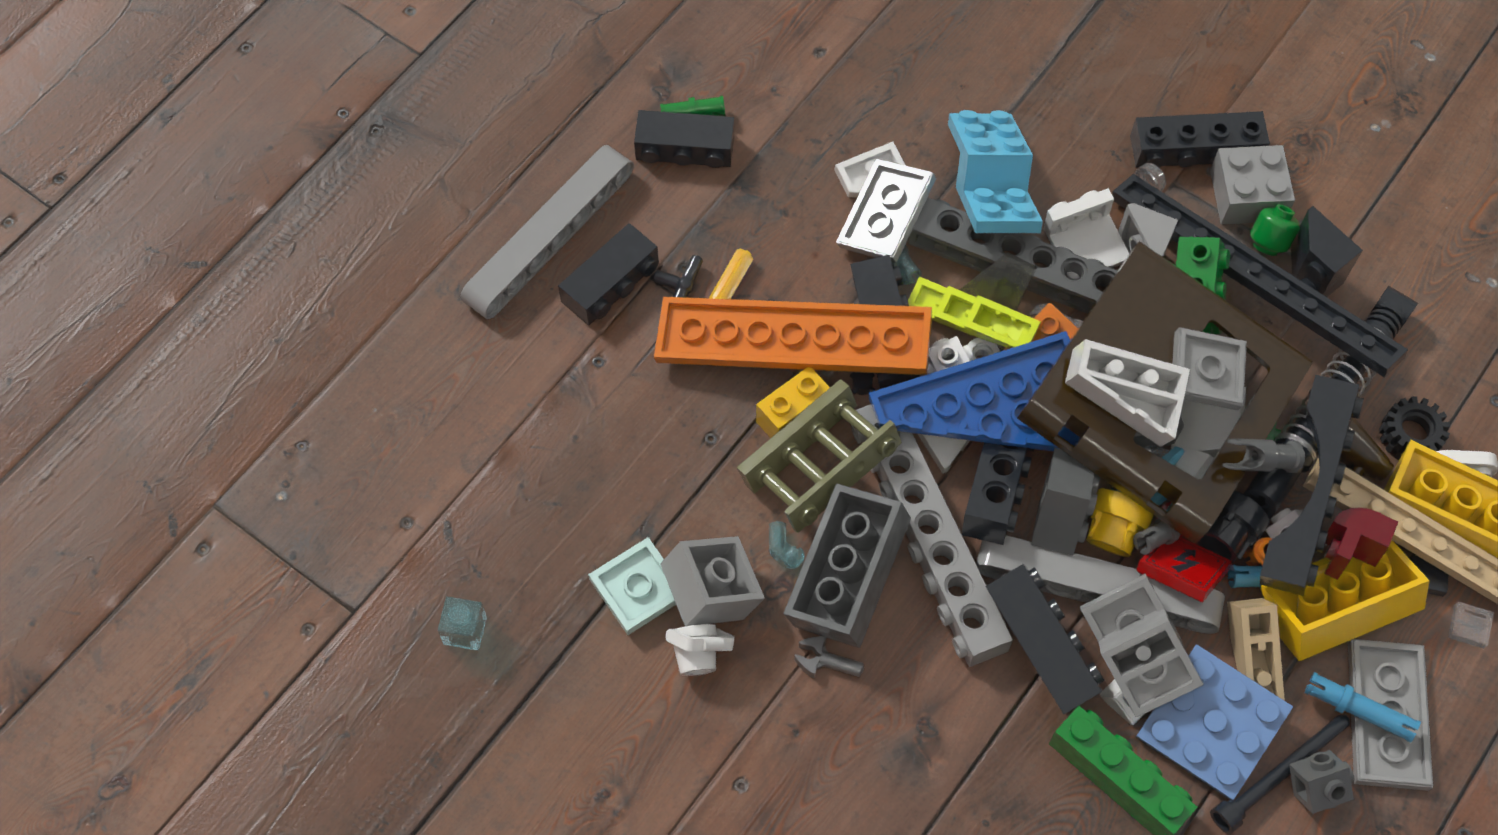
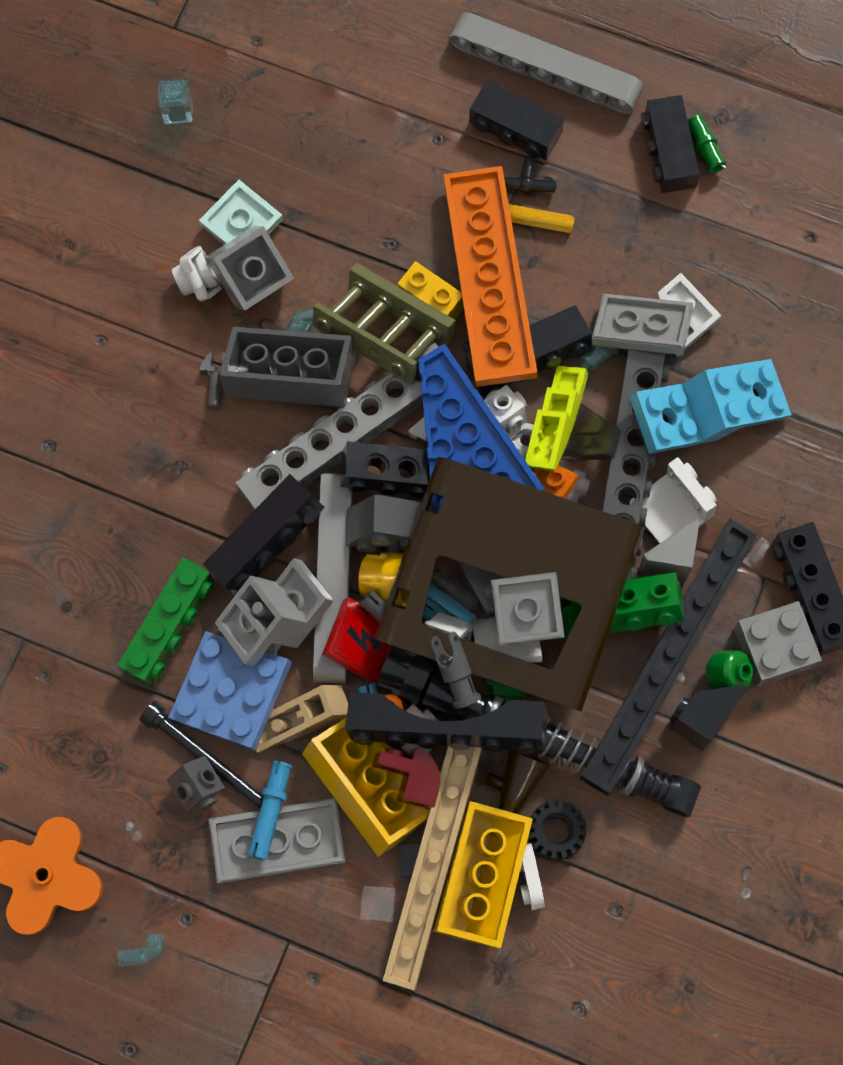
camera: 80 degrees right, 10 degrees up
(1131, 387) = (474, 533): white wedge -> none

